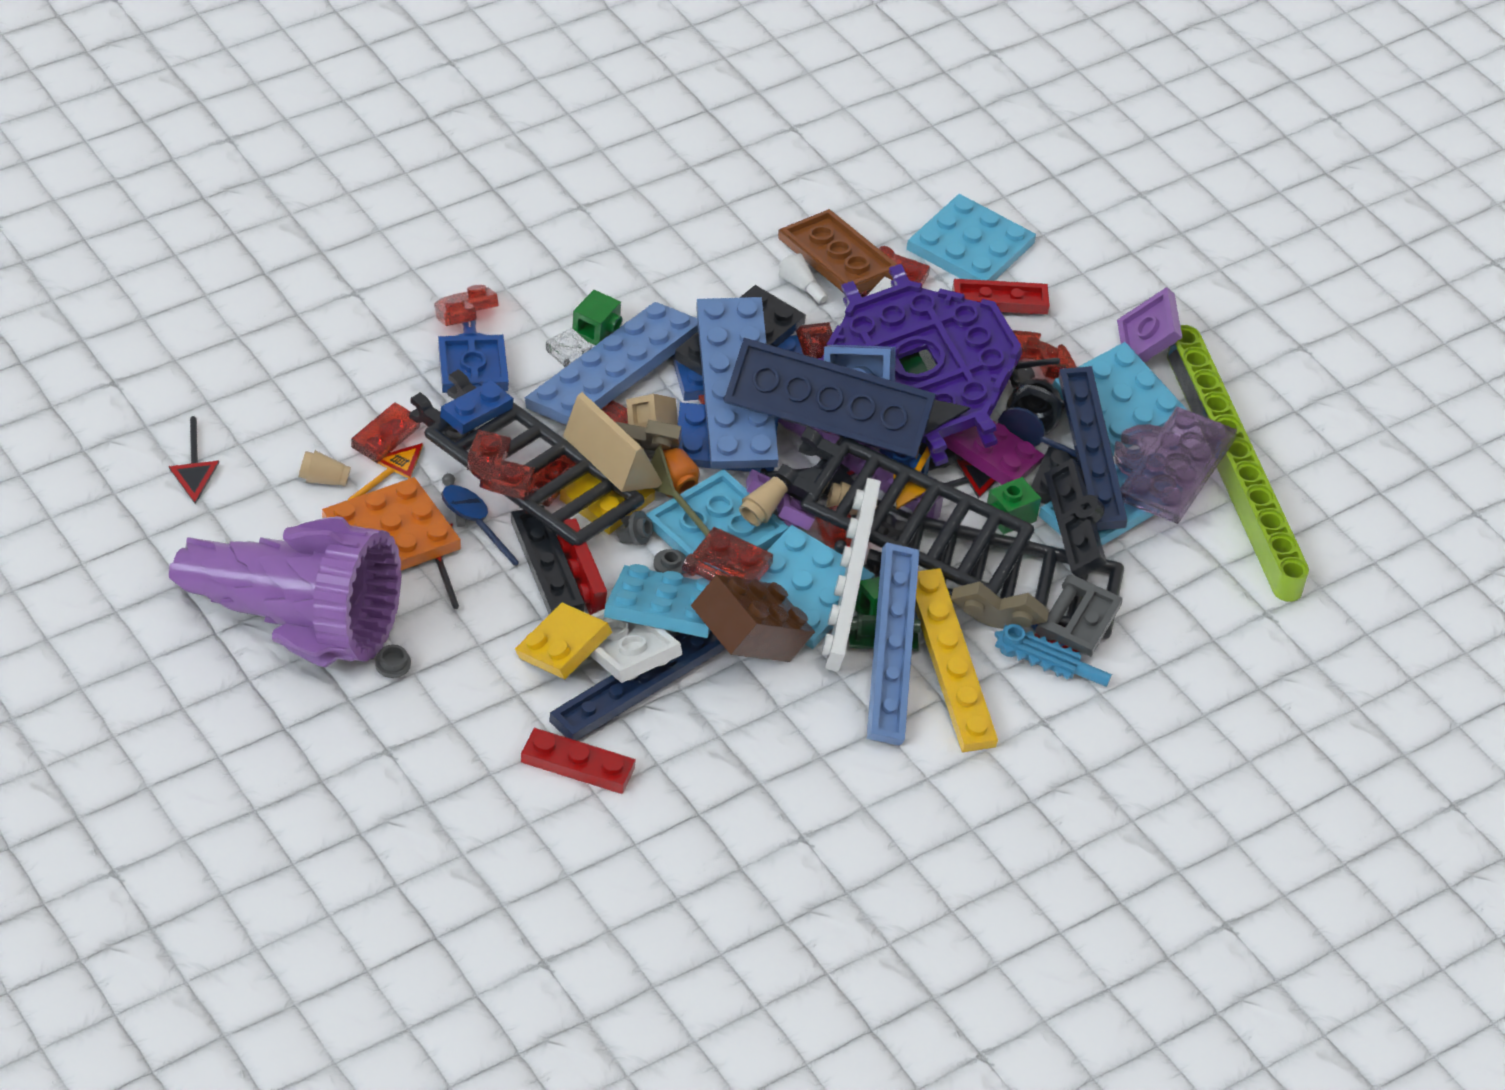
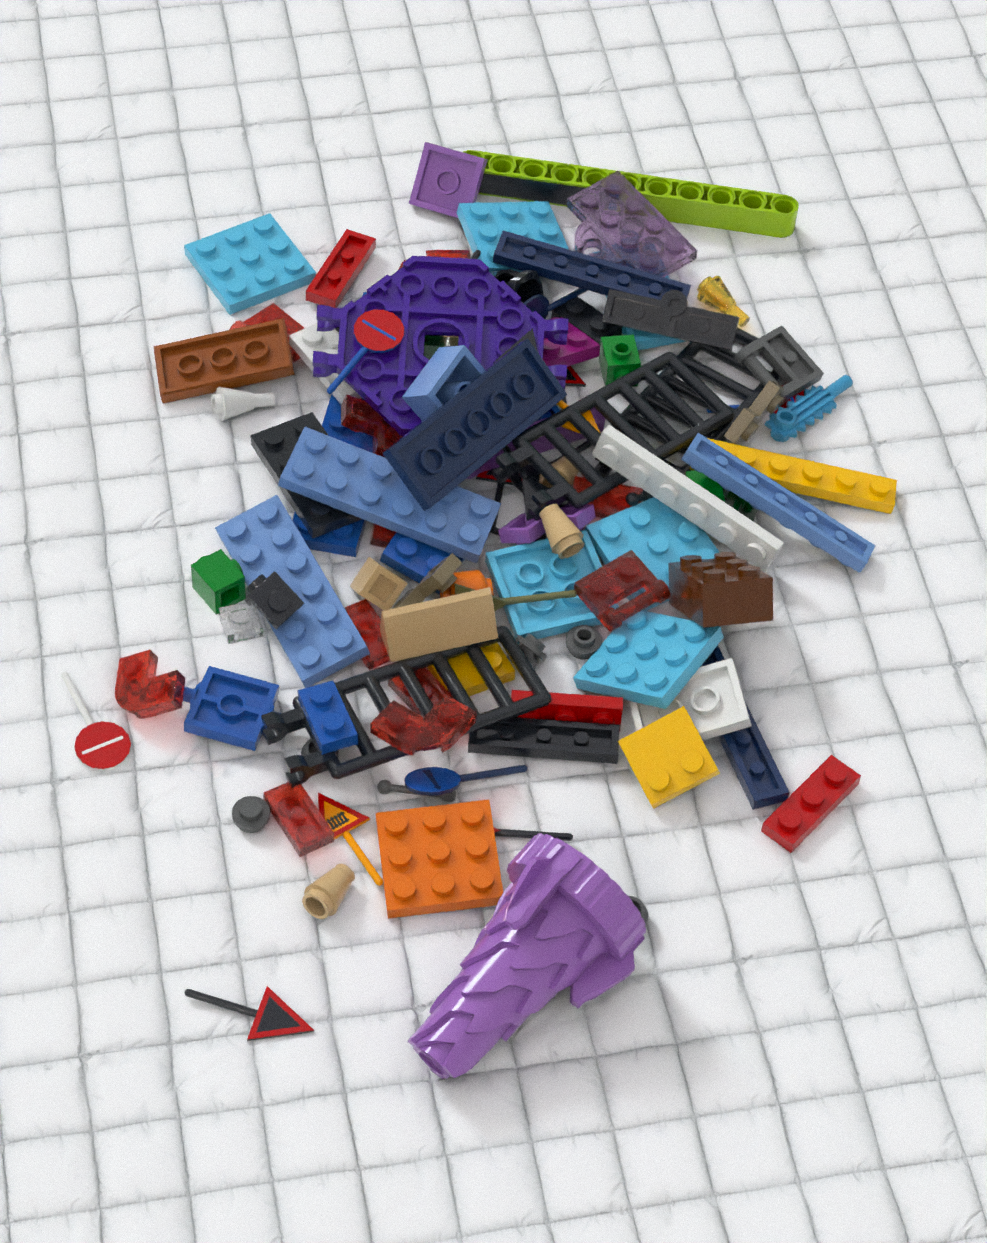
camera: 65 degrees left, 5 degrees up
(374, 404) = (251, 814): none -> dark grey plate
(406, 305) = (100, 744): none -> red piece
(584, 345) = (273, 599): none -> black bracket
(894, 311) = (374, 332): none -> red piece
(1149, 555) = (716, 295): none -> clear yellow cone

